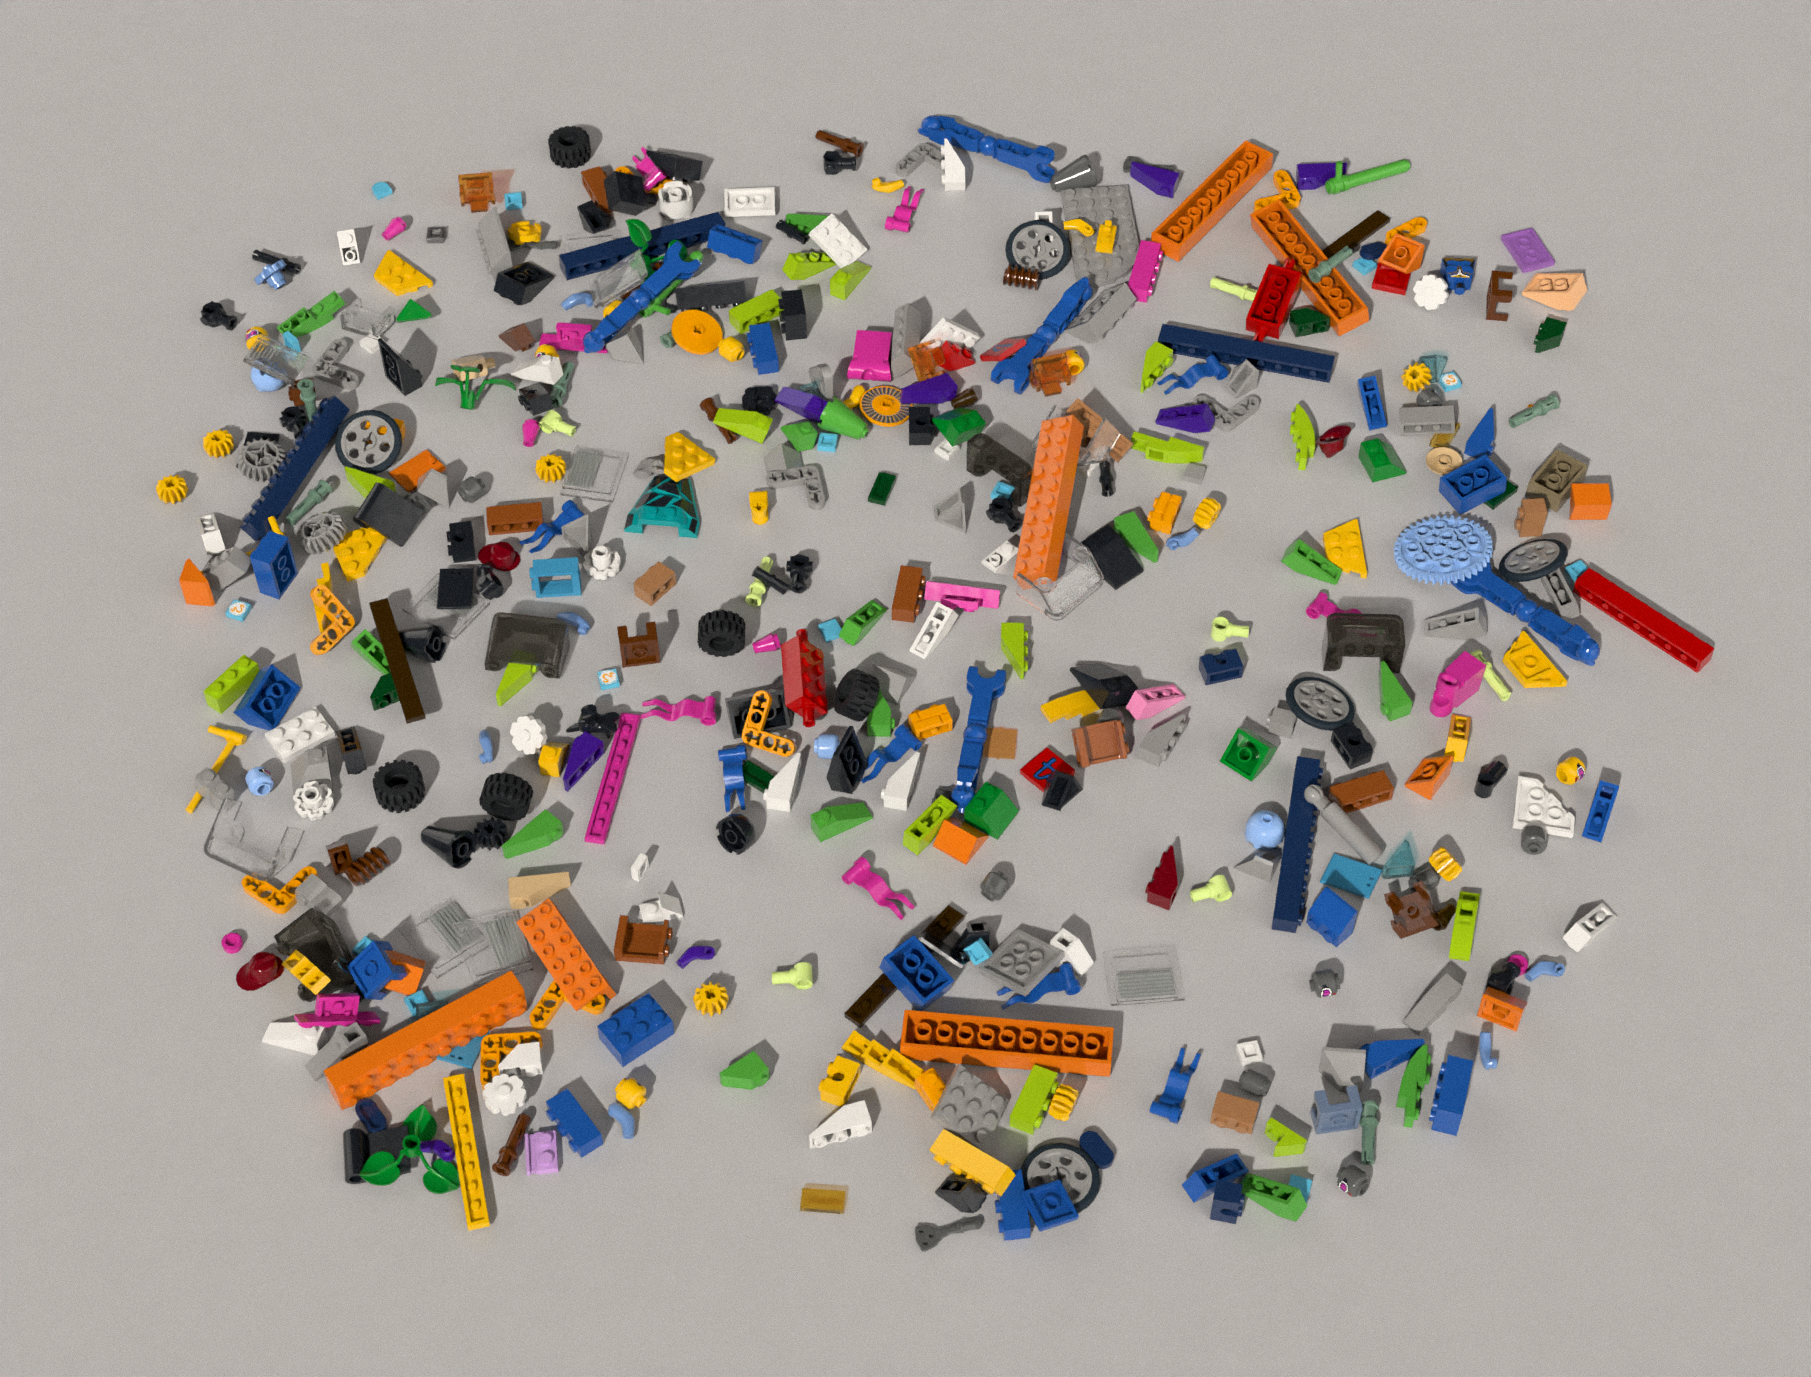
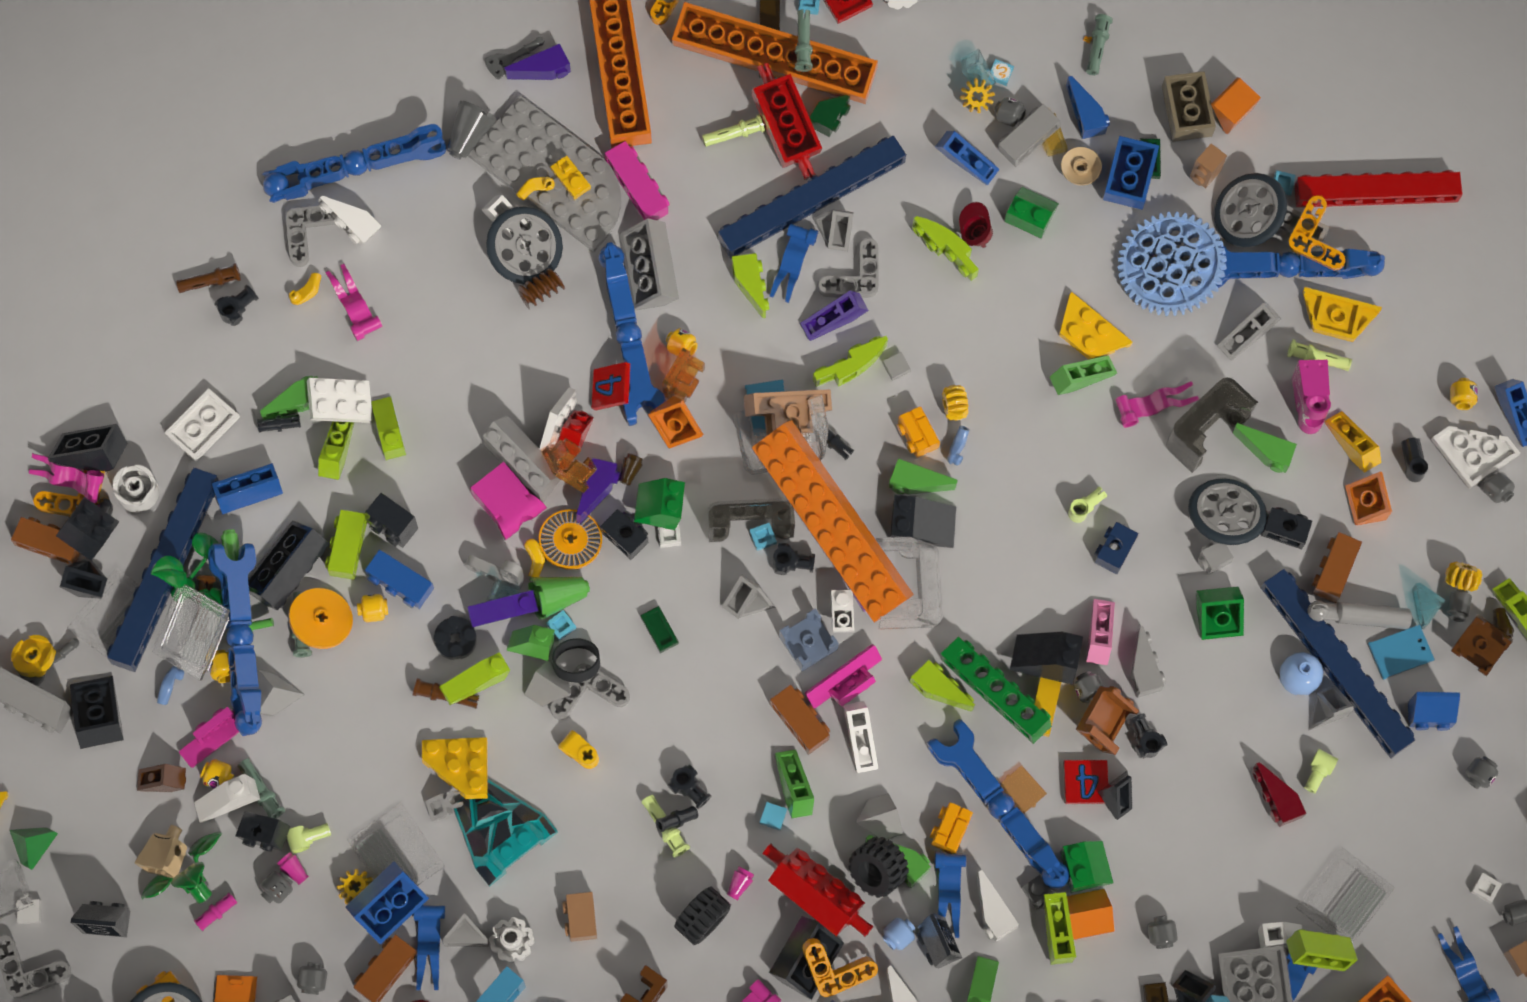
camera: 50 degrees left, 20 degrees up
(463, 419) = (215, 911): none -> dark pink pin
(509, 432) = (276, 887): none -> dark grey head
(555, 481) = (387, 902): none -> blue brick
(810, 467) = (574, 643): none -> black tyre
(963, 562) = (808, 640): none -> sand blue panel
(1017, 393) = (675, 422): none -> orange slope
(1047, 669) = (1031, 728): none -> green brick
(1085, 976) = (1321, 950): none -> lime brick
(1113, 781) = (1145, 735): none -> black connector
(1555, 596) = (1306, 236): none -> light orange beam

